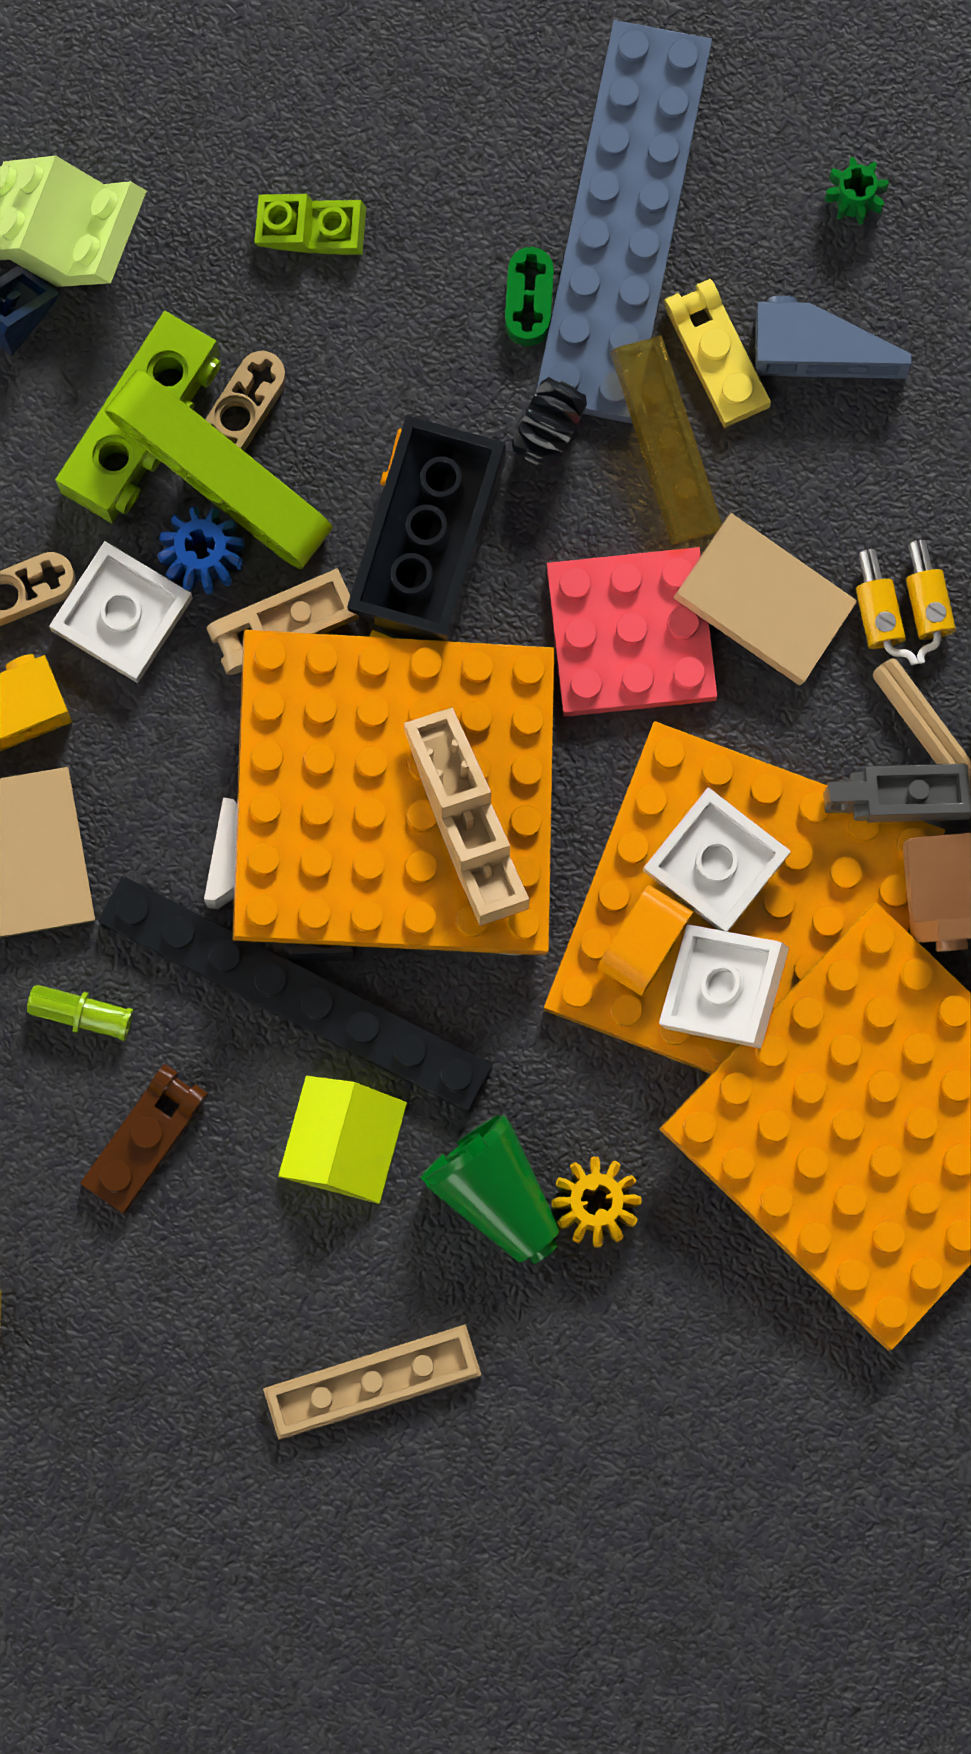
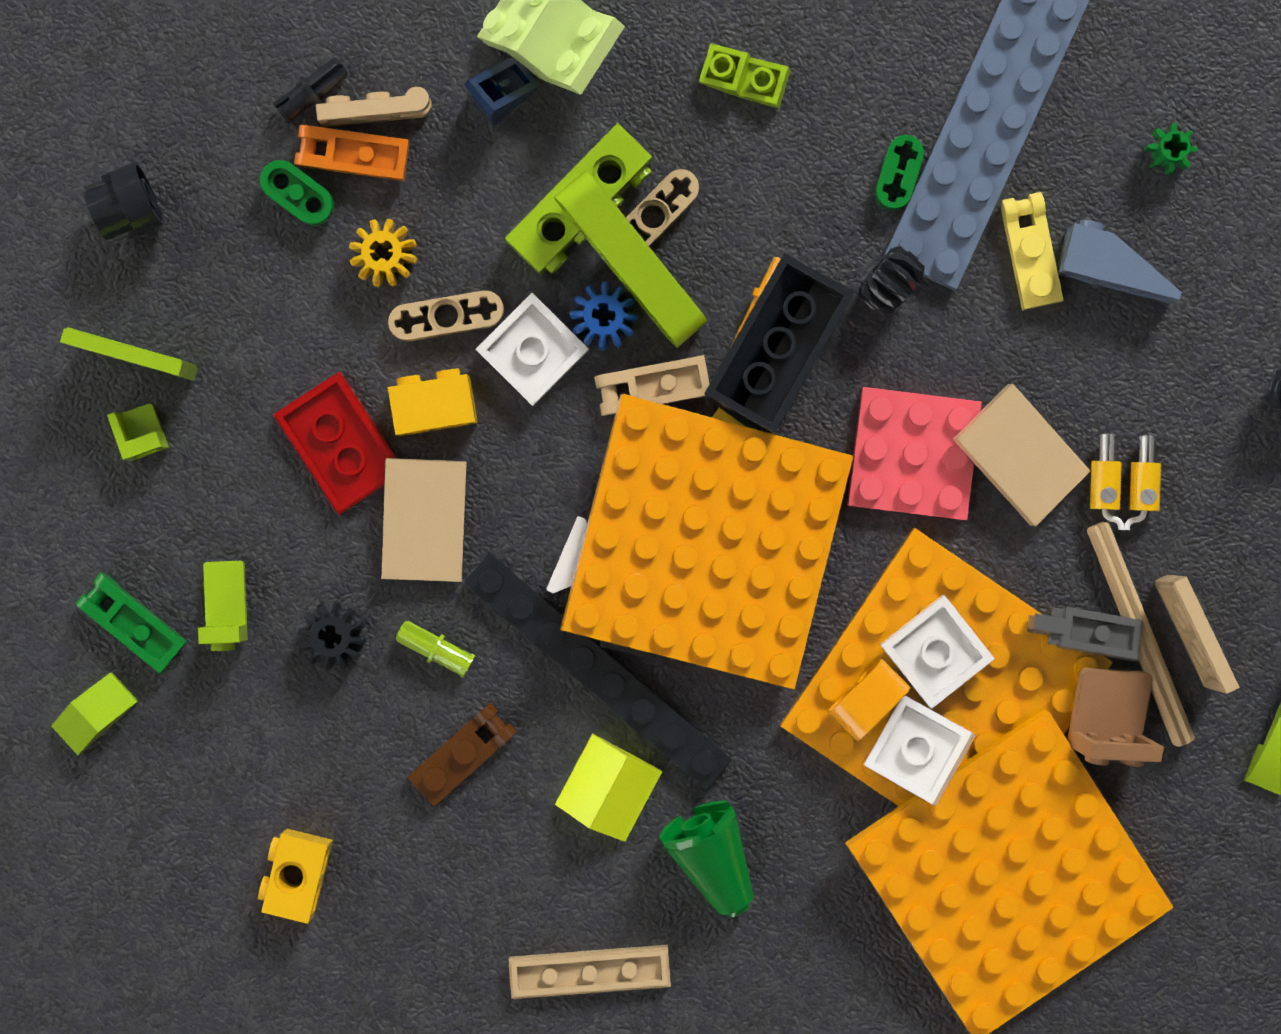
camera: 15 degrees right, 10 degrees up
(466, 816) = (757, 577): tan slope -> none
(589, 1185) = (784, 895): yellow gear -> none
(666, 440) = (977, 313): clear yellow tile -> none

